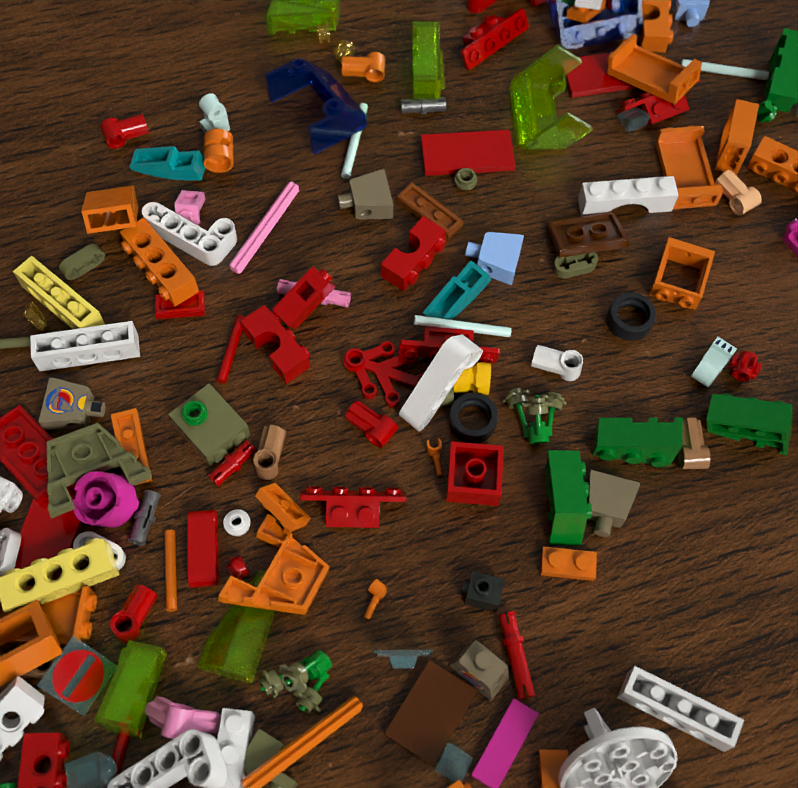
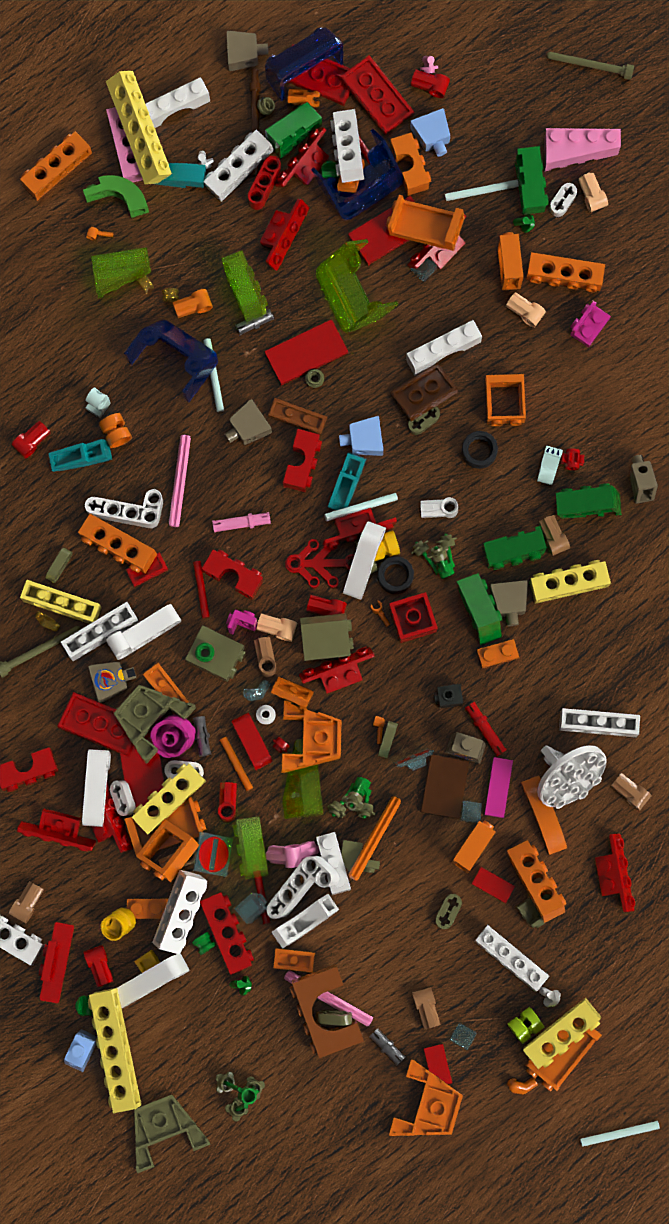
camera: 20 degrees left, 15 degrees up
(110, 209) = (62, 516): orange brick -> none
(134, 368) = (143, 632): none -> white beam
(189, 204) = (115, 486): bright pink bracket -> none
(232, 463) = (243, 674): red pin -> none
(239, 492) = (257, 693): none -> clear light blue arm
(253, 392) = (243, 619): none -> dark pink bracket
(304, 297) = (239, 531): red brick -> none
(305, 426) = (281, 628): none -> light nougat piece
(354, 454) = (326, 636): none -> olive brick
(379, 616) = (388, 739): none -> olive beam
(685, 158) = (480, 300): orange panel -> none
(737, 506) = (596, 568): none -> light yellow brick

